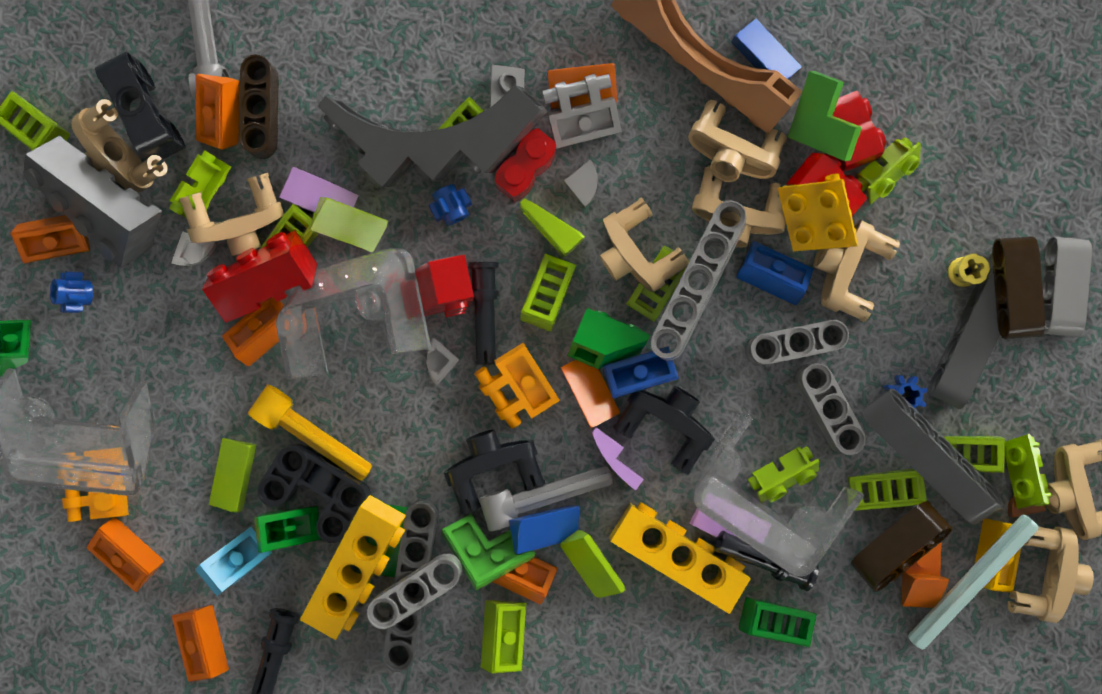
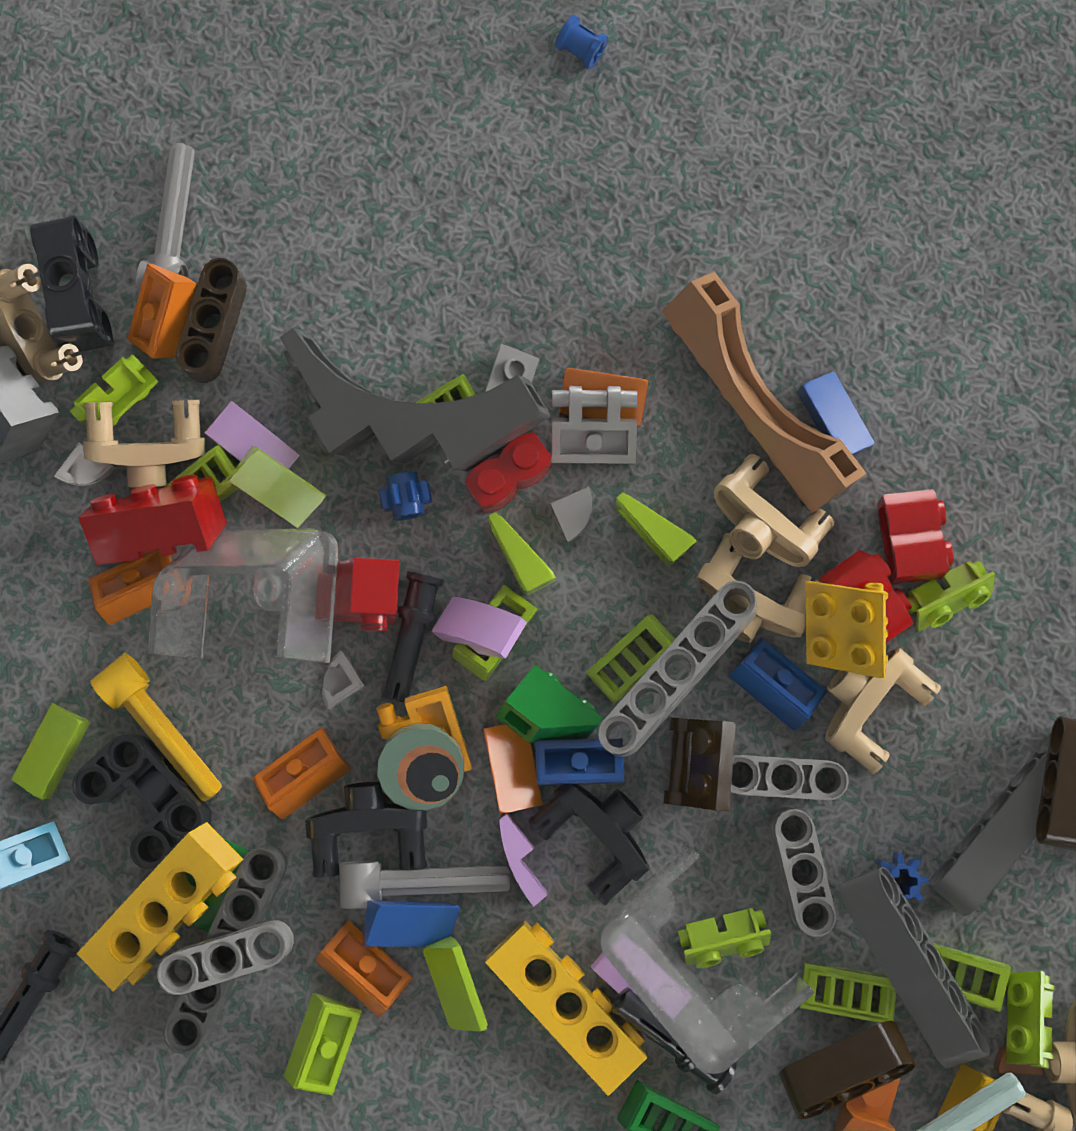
camera: 20 degrees right, 5 degrees down
(286, 528) = (94, 834): green slope -> none
(429, 439) = (300, 774): none -> orange slope
(482, 559) = (318, 937): bright green tile -> none
(521, 409) = (420, 767): none -> tile
(536, 289) = (480, 626): none -> lavender slope
(627, 258) = (599, 616): tan connector -> none
(653, 181) = (658, 533): none -> lime slope
(740, 348) = (709, 764): none -> dark brown plate
(815, 121) = (872, 514): bright green tile -> none
(977, 275) = (1023, 756): light yellow bush -> none

